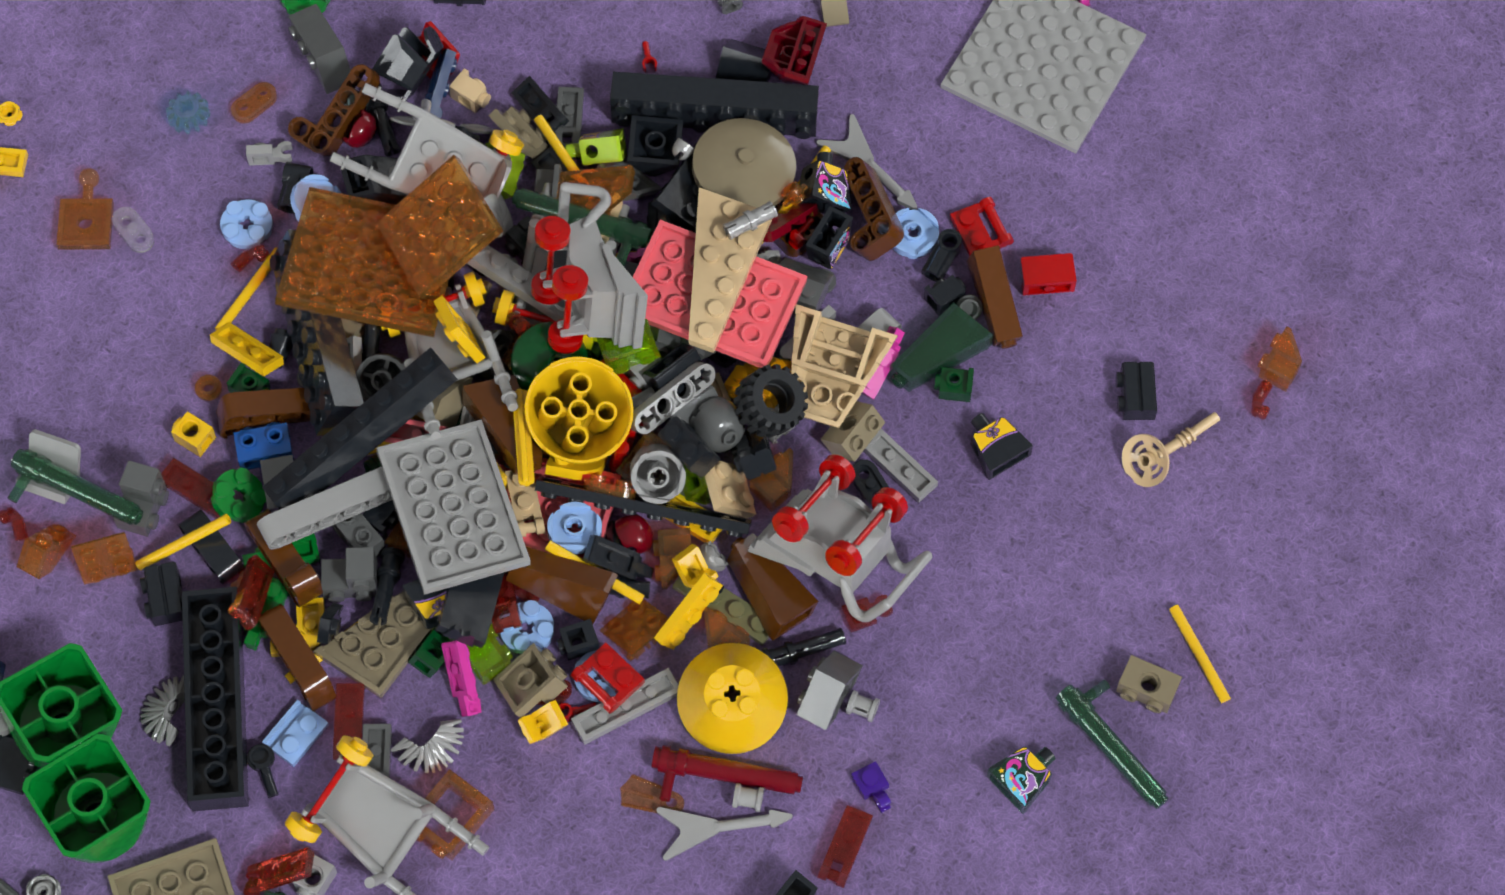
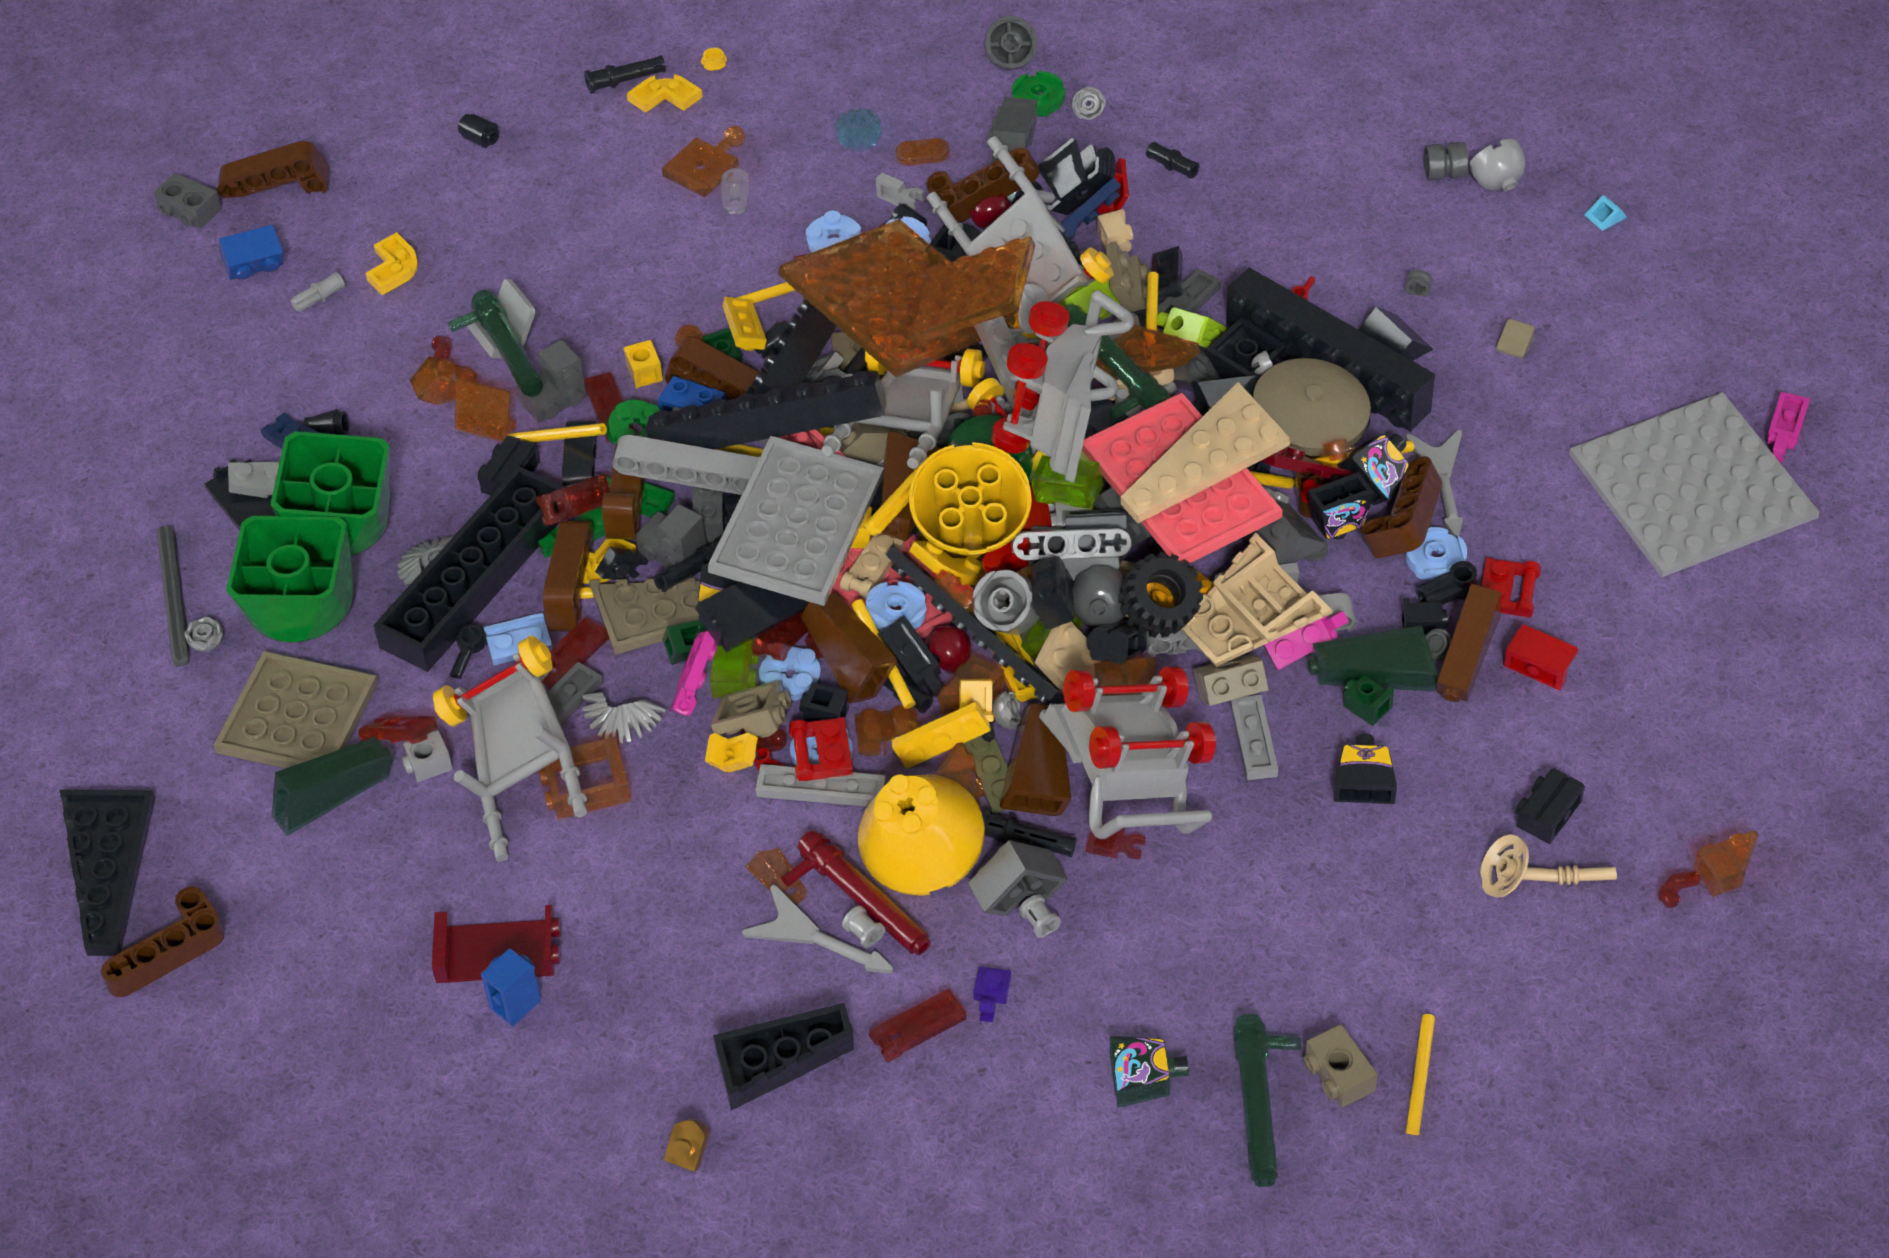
camera: 40 degrees right, 15 degrees down
(458, 330) = (919, 376): yellow plate -> none
(750, 220) = (1259, 426): light grey pin -> none
(794, 50) = (1445, 345): dark red wedge -> none
(870, 485) = (1219, 719): black plate -> none

